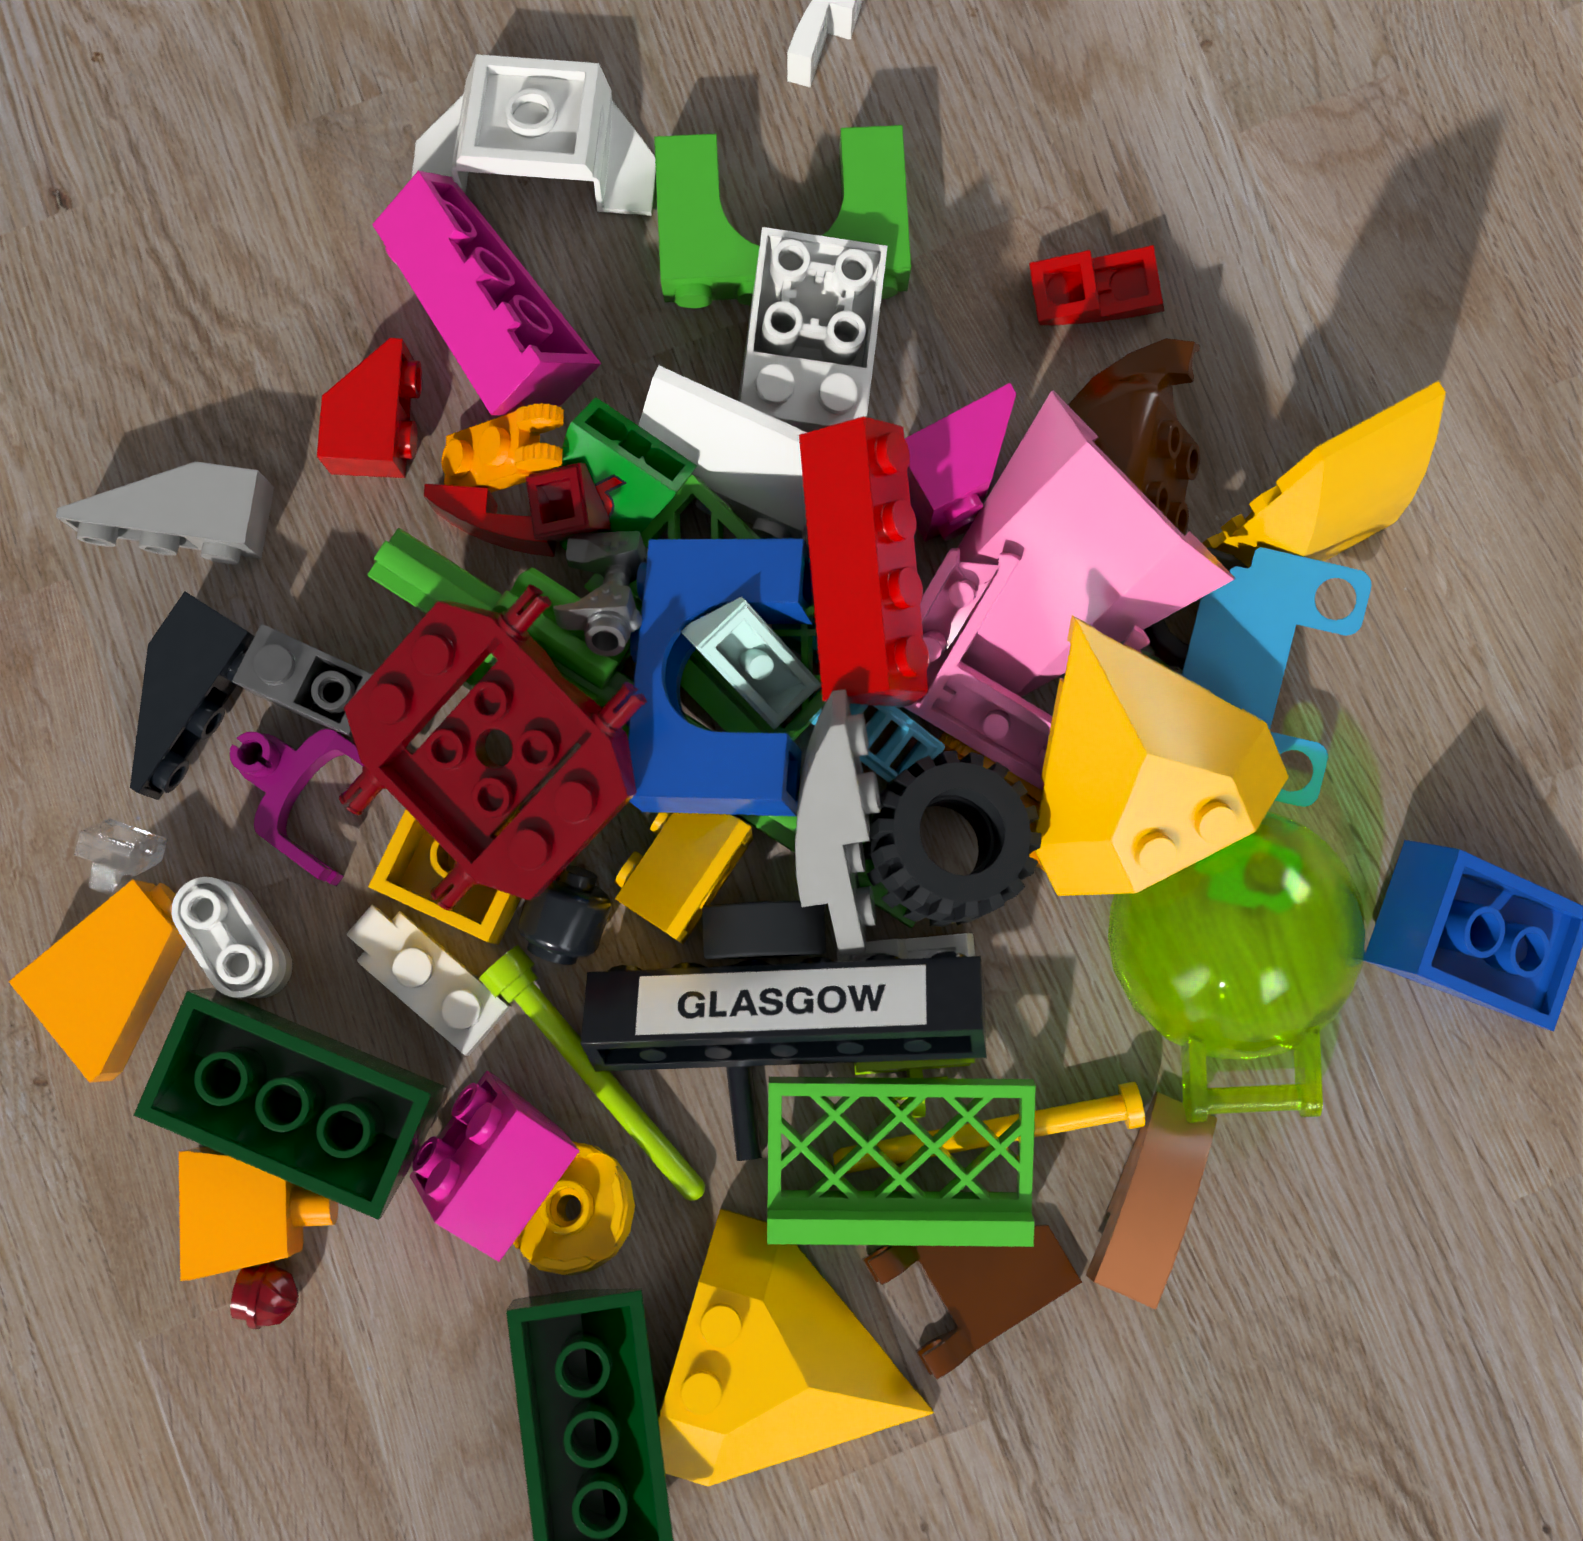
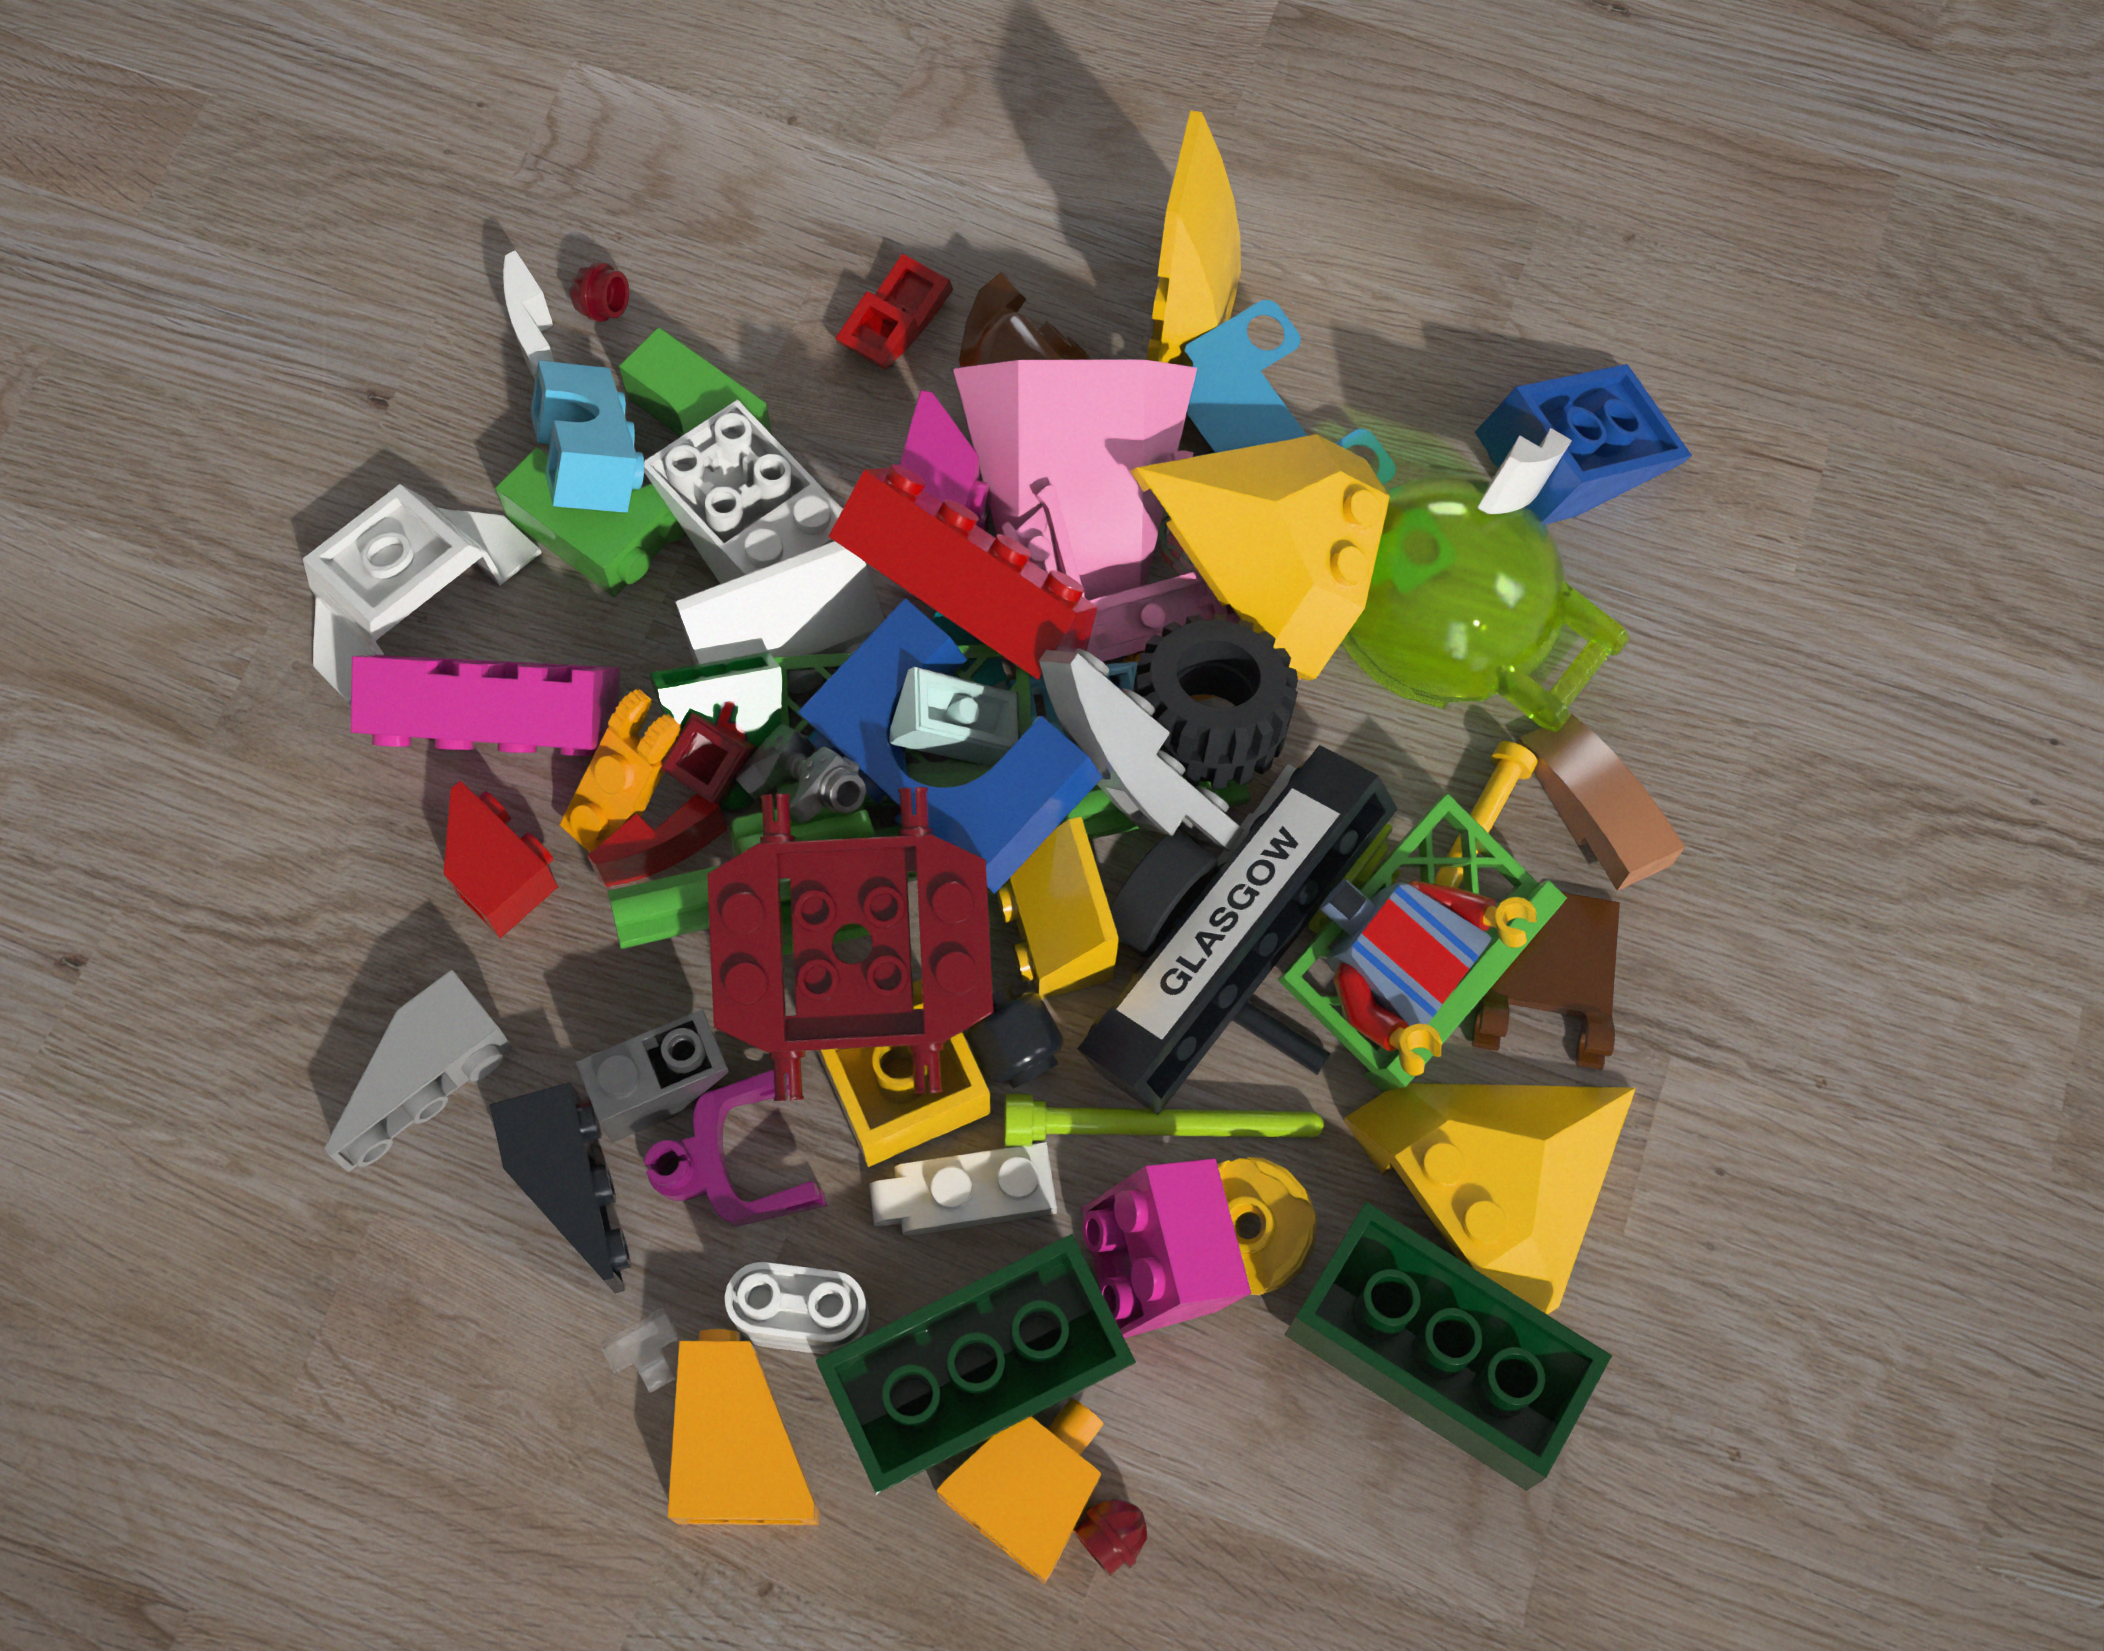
camera: 50 degrees left, 15 degrees down
(752, 163) = (589, 439): none -> medium azure arch
(861, 1167) = (1409, 955): none -> torso
(903, 49) = (599, 292): none -> dark red plate
(1372, 924) = (1523, 473): none -> white slope

